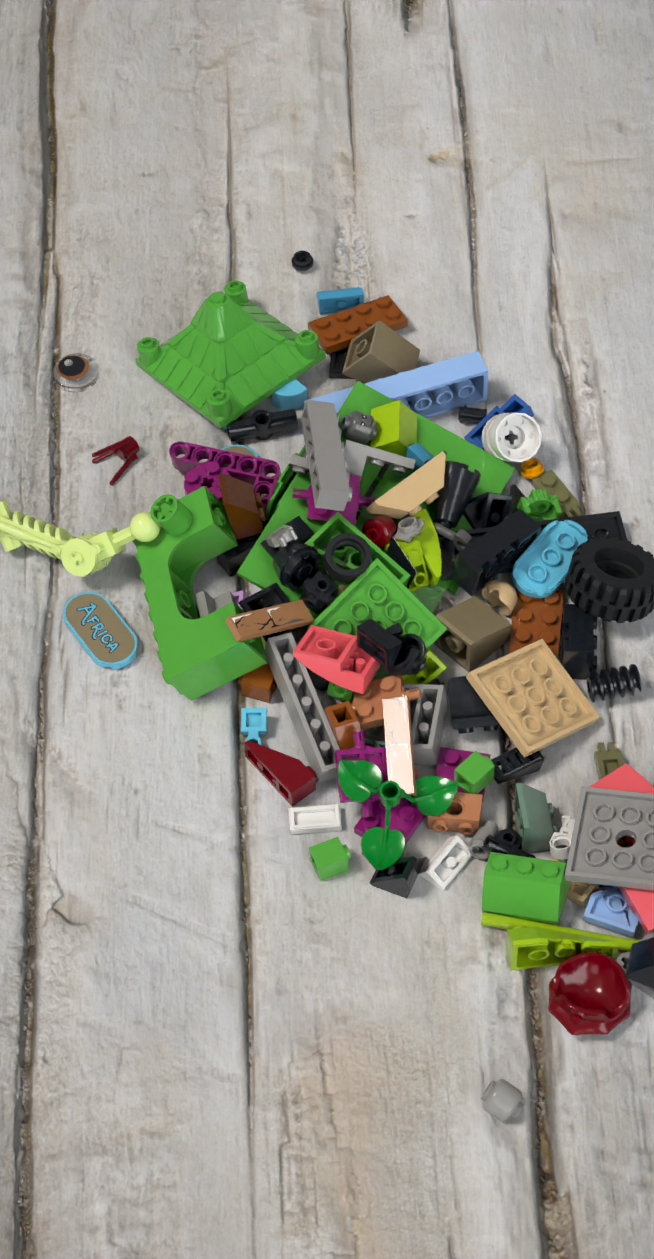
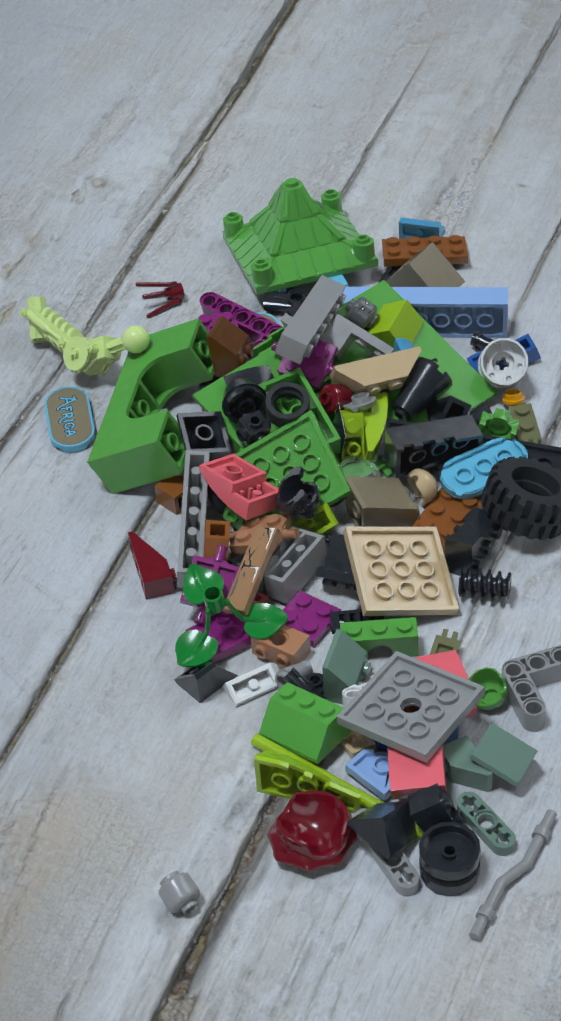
camera: 25 degrees right, 10 degrees down
(76, 372) = (169, 229): clear tile -> none
(171, 515) = (158, 333): bright green piece -> none
(254, 723) = (150, 524): medium azure plate -> none
(269, 620) = (192, 434): medium nougat tile -> none
(281, 536) = (239, 372): light grey plate -> none
(302, 261) = (406, 194): black plate -> none
(315, 819) = (157, 614): white tile -> none
(329, 858) = (148, 646): bright green brick -> none
(378, 643) = (277, 479): black slope -> none
(461, 538) = (398, 419): dark grey bar -> none
(474, 773) = (312, 615): bright green brick -> none
(561, 764) = (396, 634): none -> bright green arch

